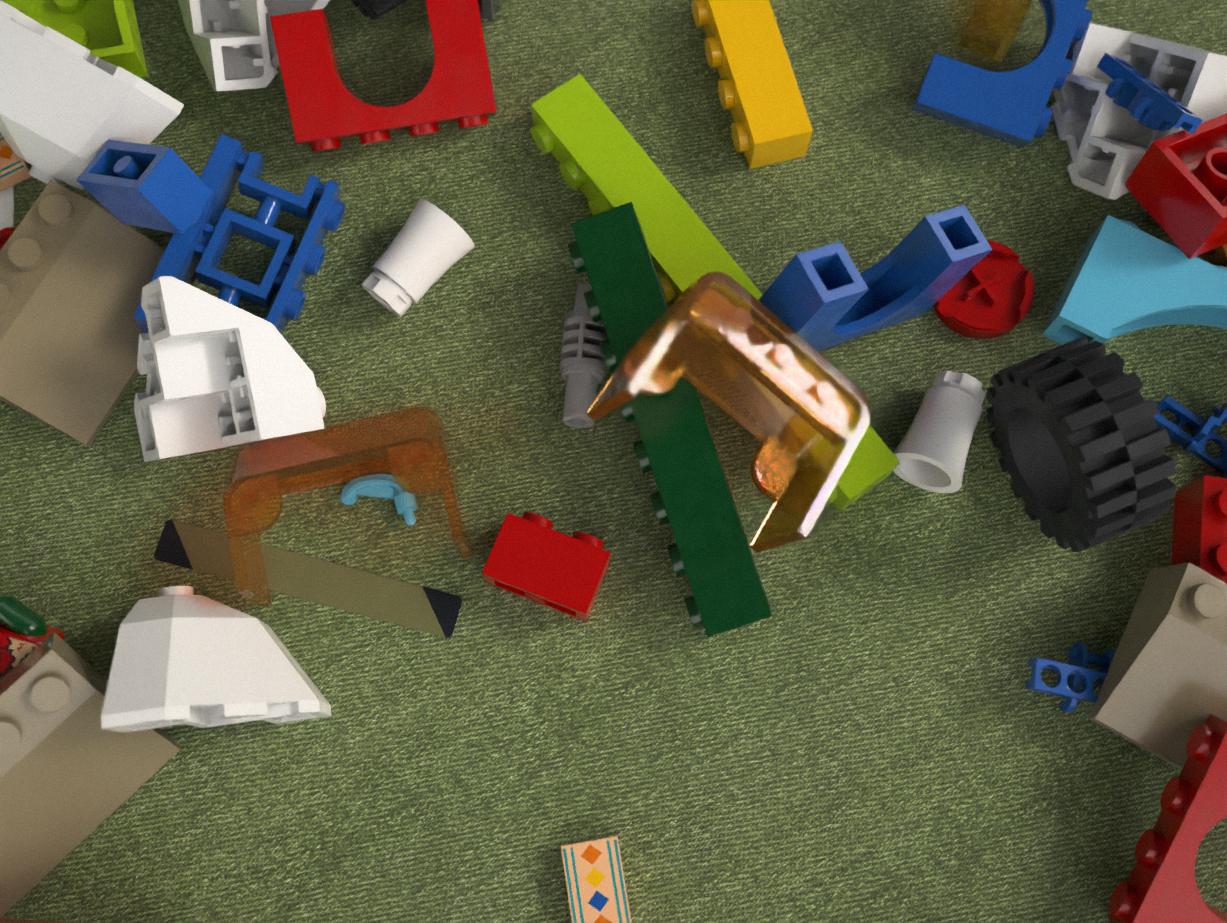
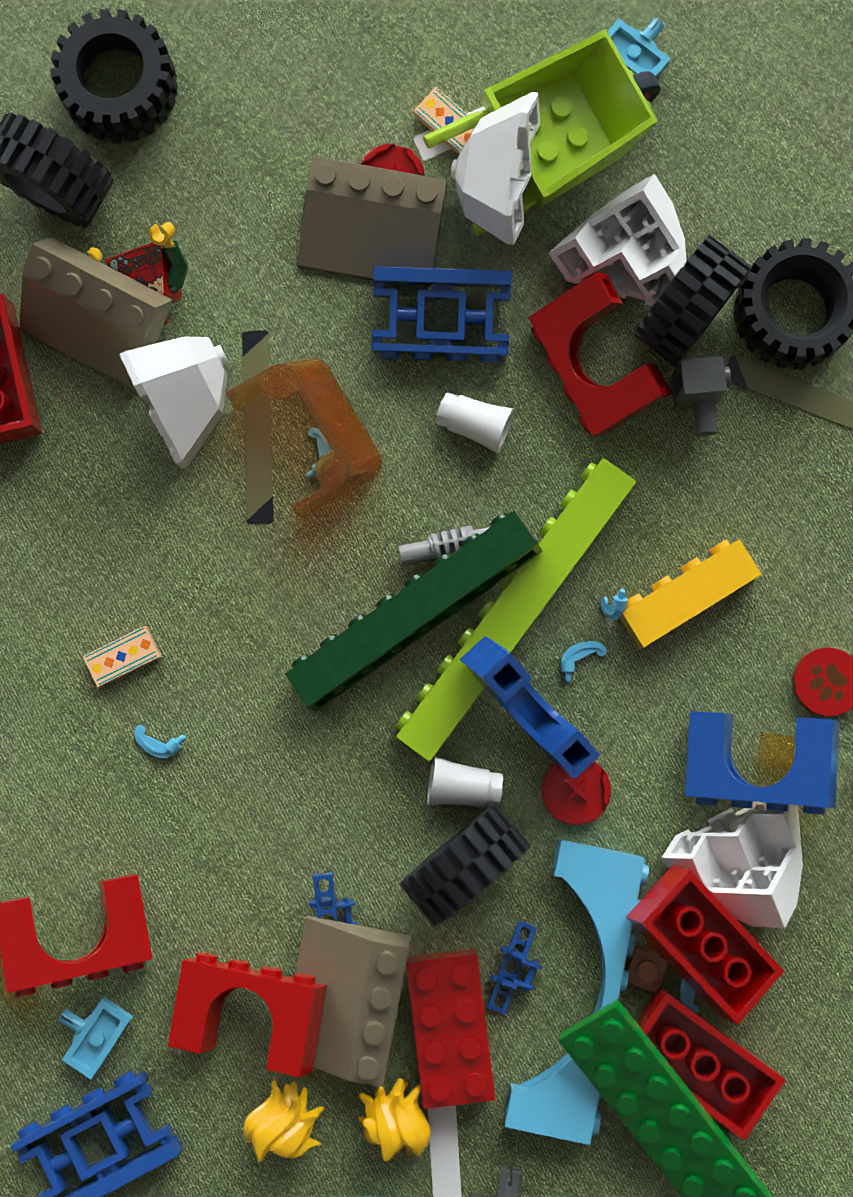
camera: 80 degrees right, 10 degrees up
(146, 186) = (452, 242): blue brick -> none
(216, 376) = (350, 334): white brick -> none
(547, 565) = (304, 566): red brick -> none
(748, 160) = (614, 610): none -> medium azure piece
(759, 888) = (156, 747): none -> medium azure piece
(766, 383) = (436, 688): clear orange windscreen -> none
(787, 229) = (578, 652): none -> medium azure piece
(1144, 98) = (741, 856): blue piece -> none

